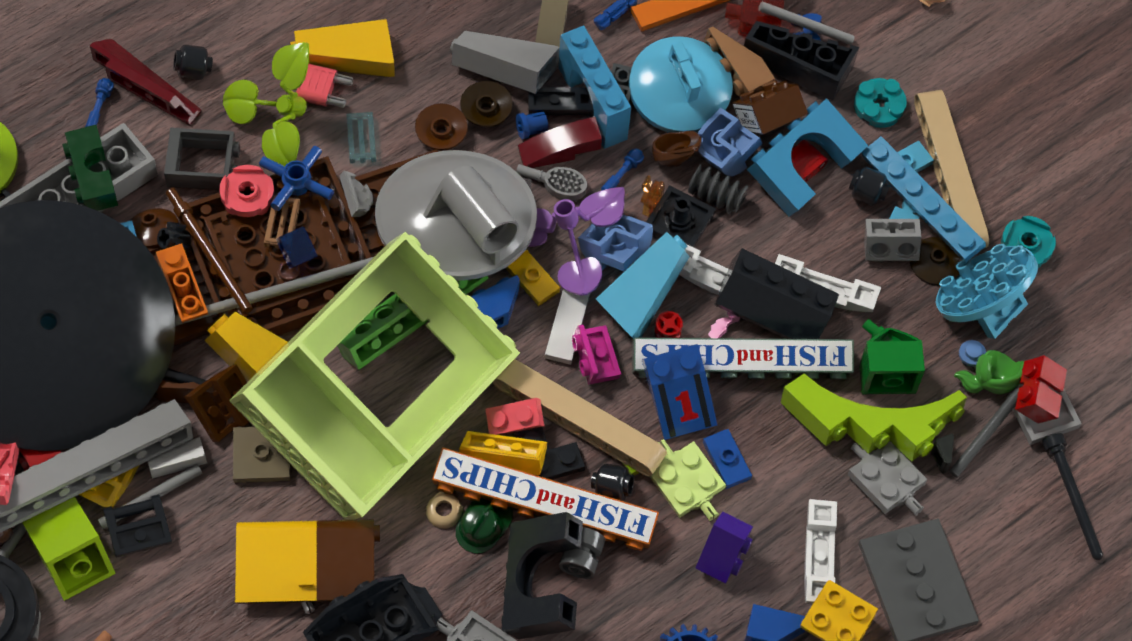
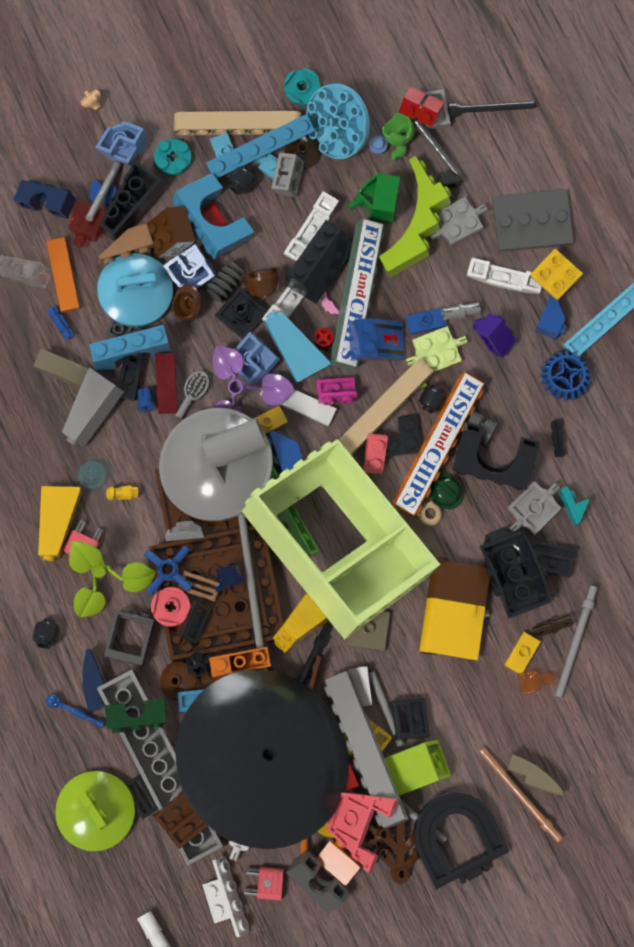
camera: 75 degrees left, 15 degrees up
(138, 79) = (51, 673): dark red wedge -> none
(142, 122) = (91, 681): none -> dark blue slope
(184, 212) = (178, 654): reddish brown bar -> none
(212, 403) = (330, 648): reddish brown slope -> none
(230, 221) = (194, 622): none -> black plate
(362, 156) = (129, 522): clear light blue tile -> none
(398, 120) = (122, 493): none -> yellow arm
(416, 79) = (91, 474): none -> clear light blue plate
(437, 118) = (134, 454): reddish brown dish -> none
(486, 95) = (116, 422): dark brown dish -> none
(507, 451) = (397, 465): yellow slope -> none
(632, 160) = (185, 335): blue piece -> none
(652, 194) = (222, 328): clear orange plate -> none
(728, 232) = (262, 282): none -> reddish brown cone
(752, 500) = (460, 311): none -> light grey pin
(881, 35) = (122, 142): none -> medium blue brick

